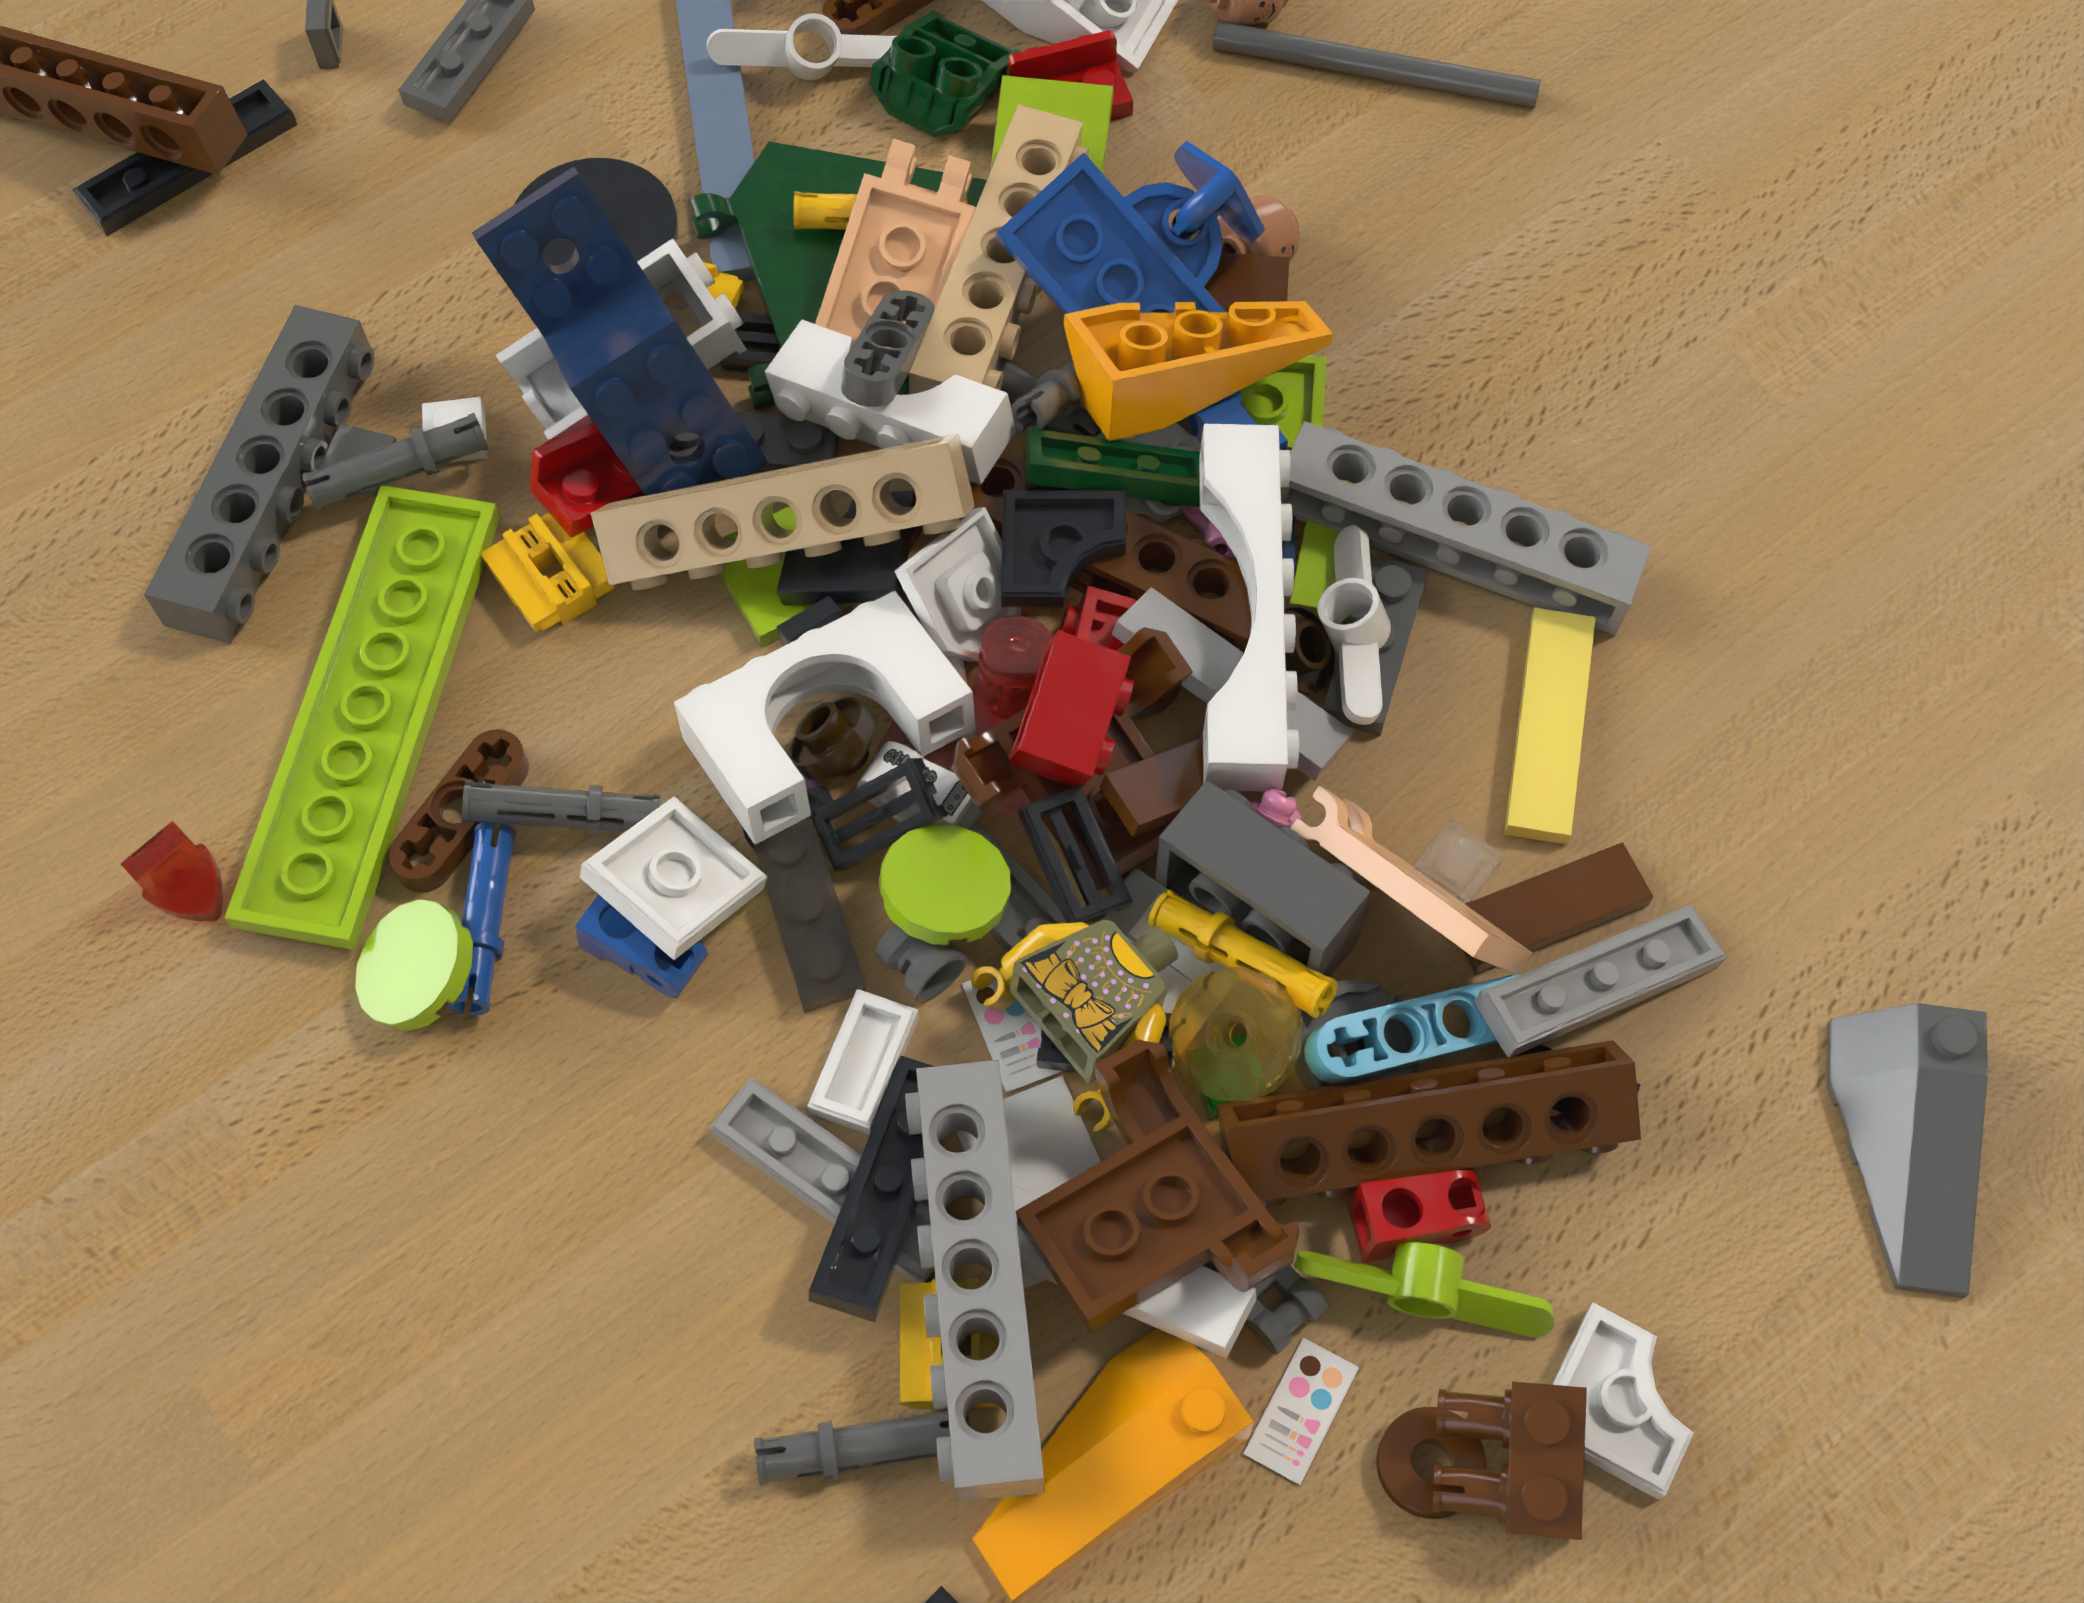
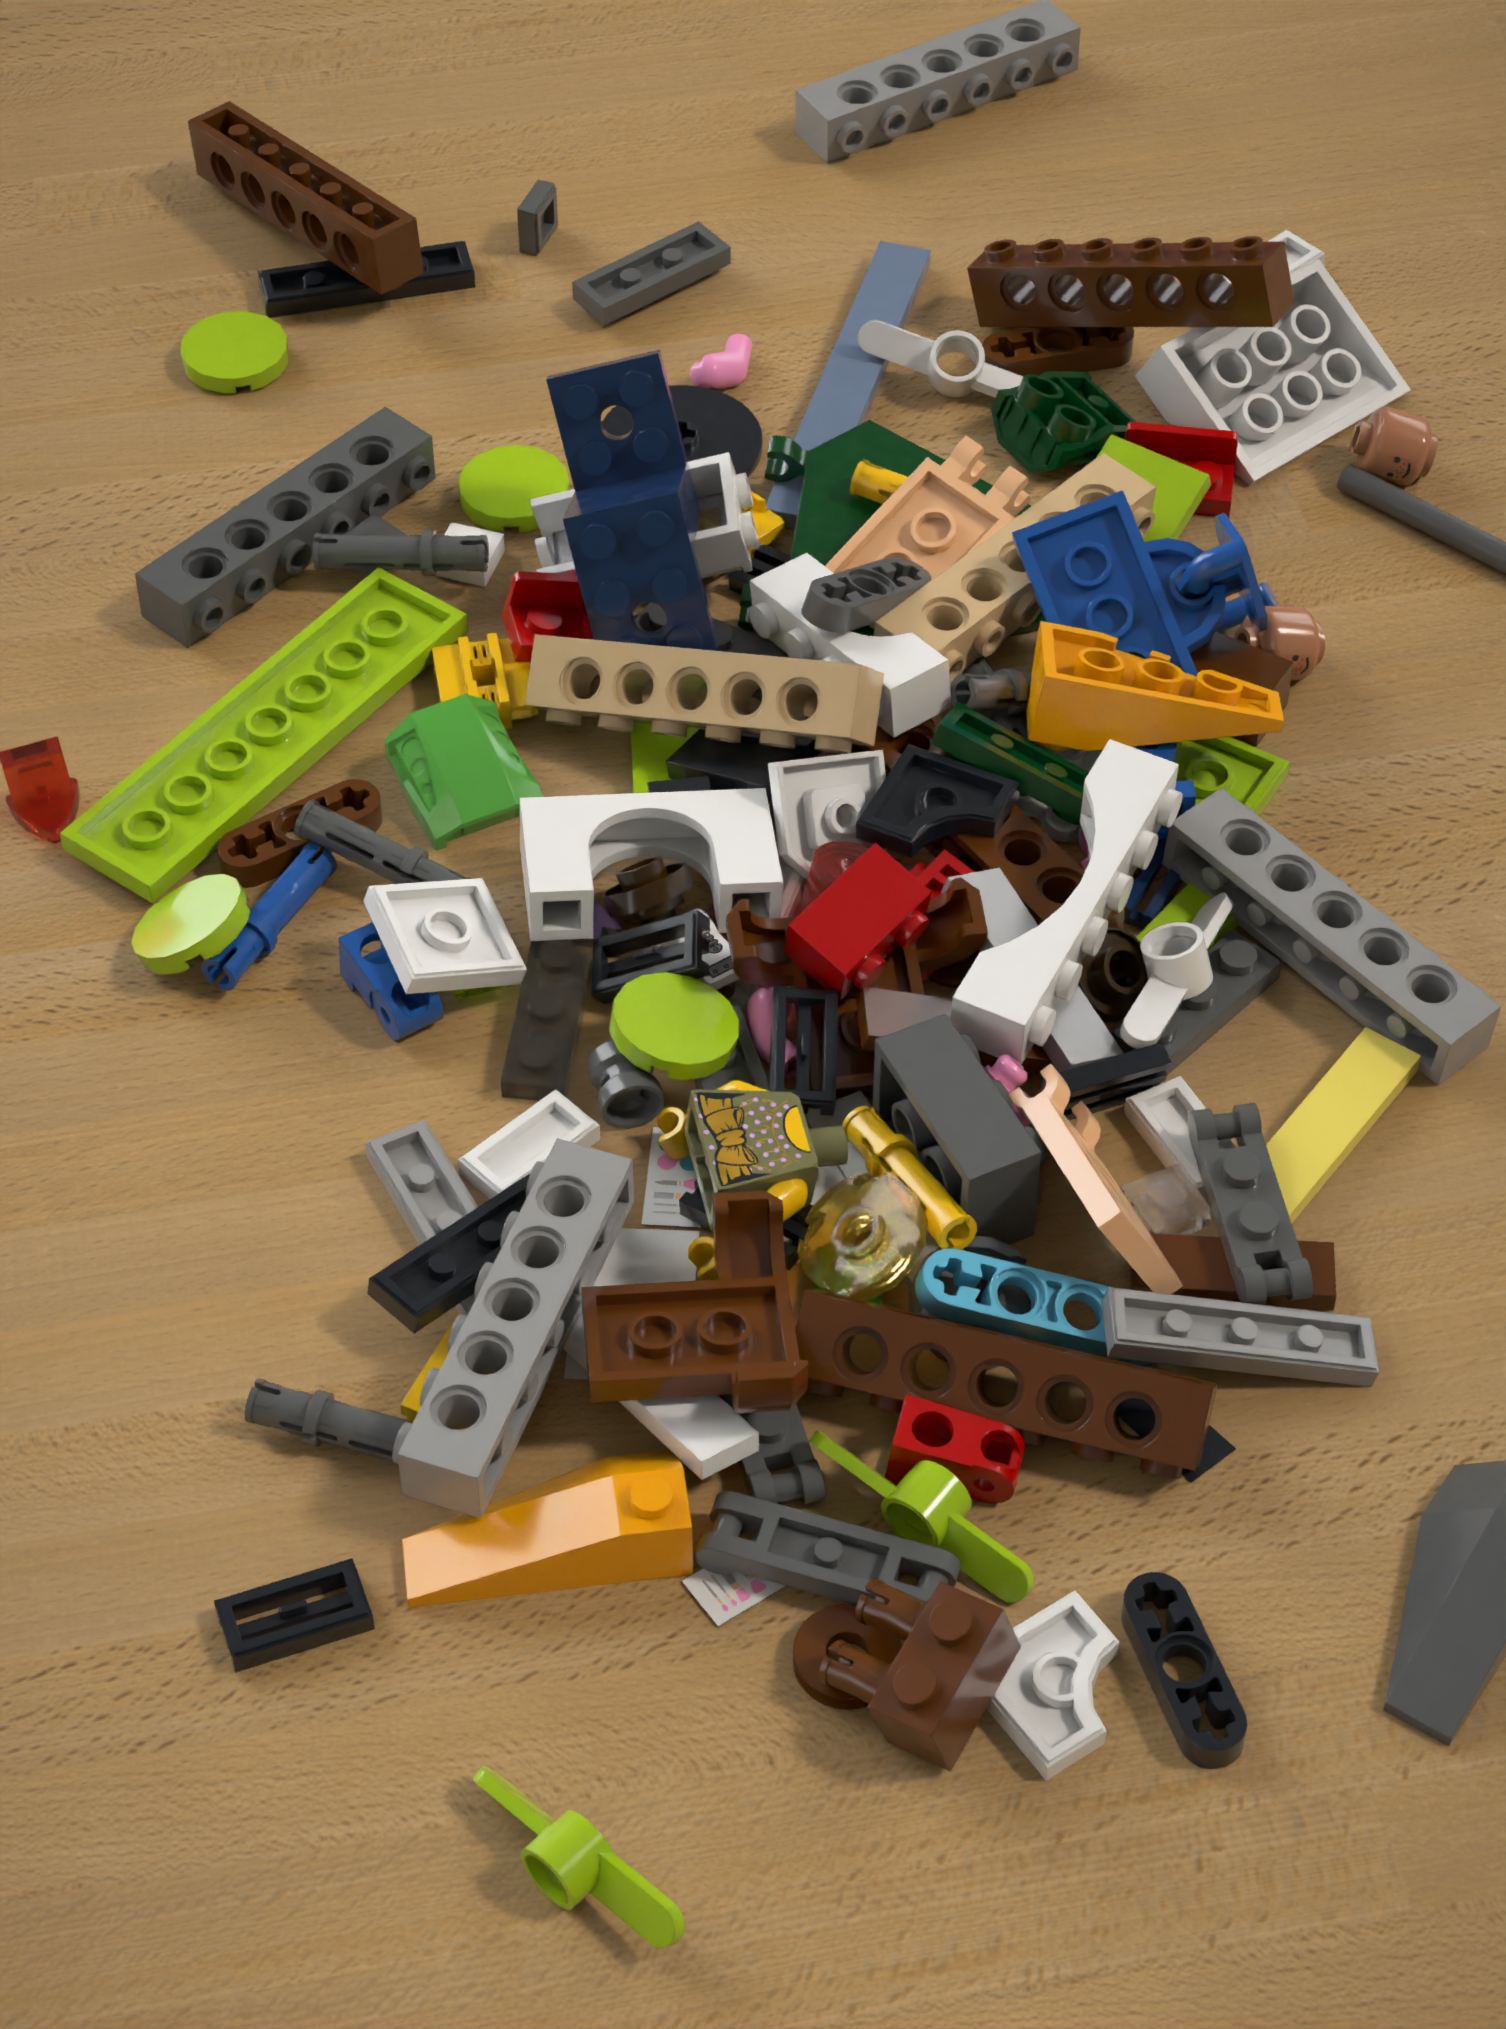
camera: 25 degrees right, 15 degrees down
(97, 289) = (234, 351): none -> lime tile
(456, 338) = (503, 480): none -> lime tile
(581, 678) = (458, 768): none -> bright green slope
(591, 130) = (724, 368): none -> bright pink arm
(1010, 833) = (759, 1024): none -> bright pink arm
(1350, 764) = (1114, 1079): none -> black tile
(1365, 1374) = (816, 1551): none -> dark grey plate
(1437, 784) = (1162, 1119): none -> white tile
(1540, 842) = (1248, 1206): none -> dark grey plate
(1751, 1332) = (1180, 1699): none -> black beam

